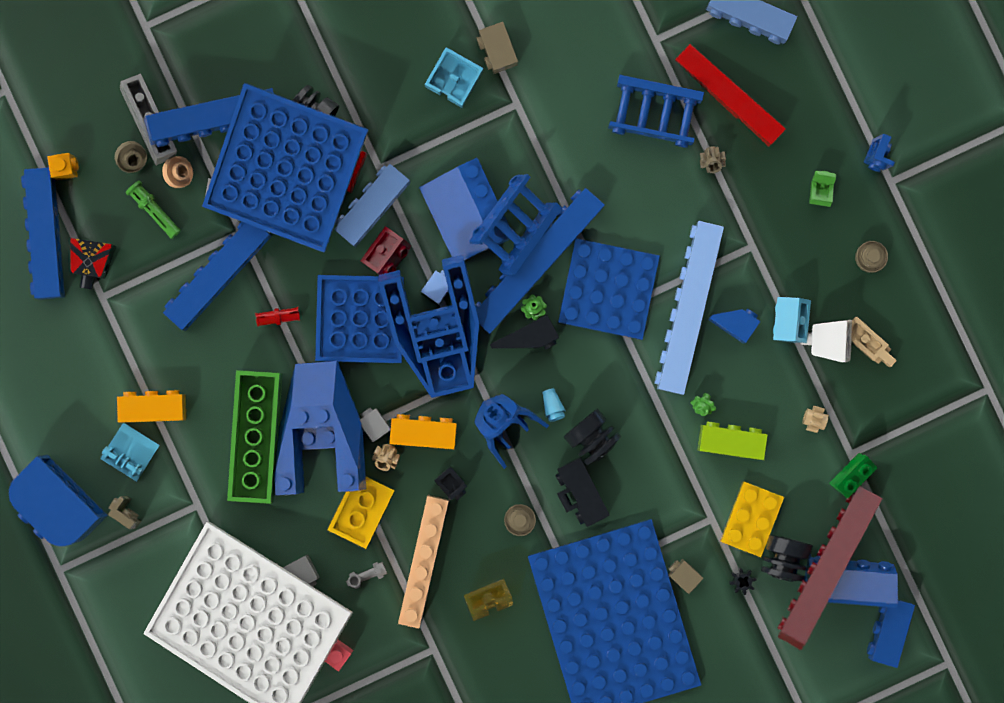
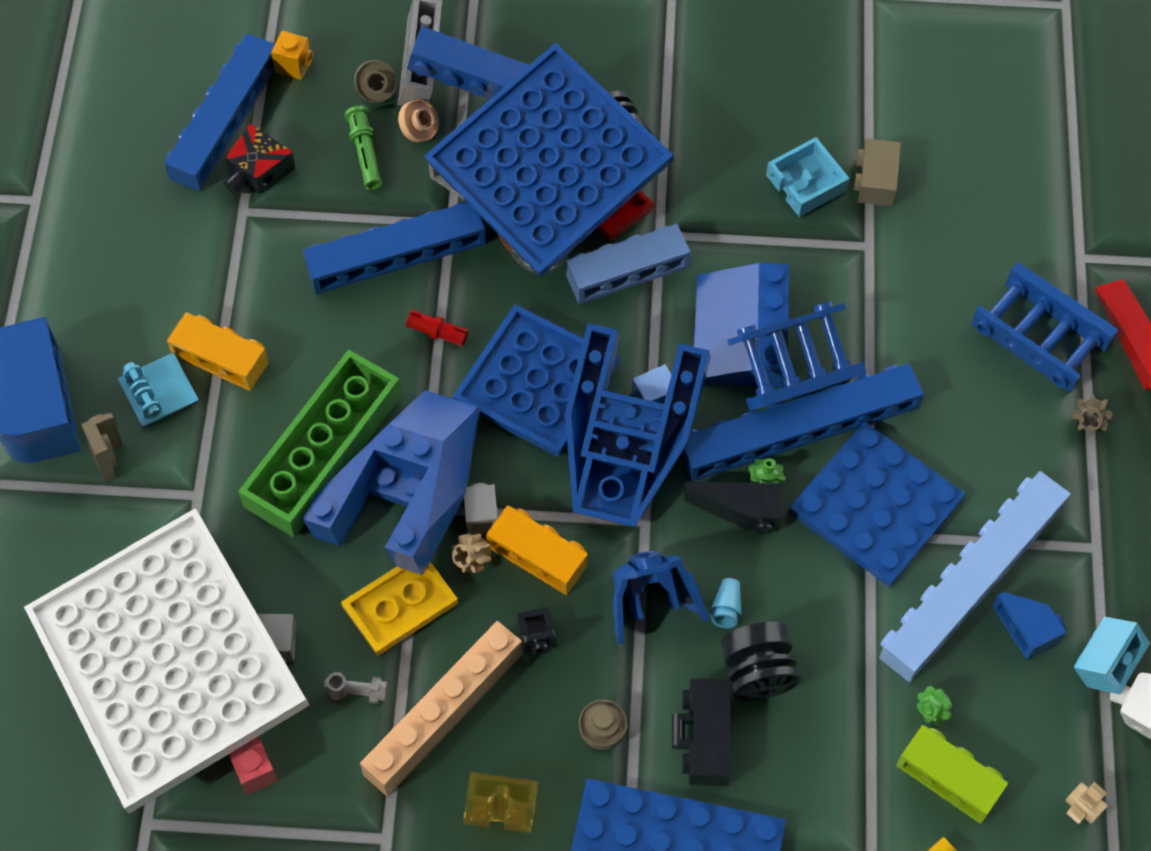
camera: 30 degrees right, 25 degrees down
(386, 252) = (621, 314): dark red bracket -> none

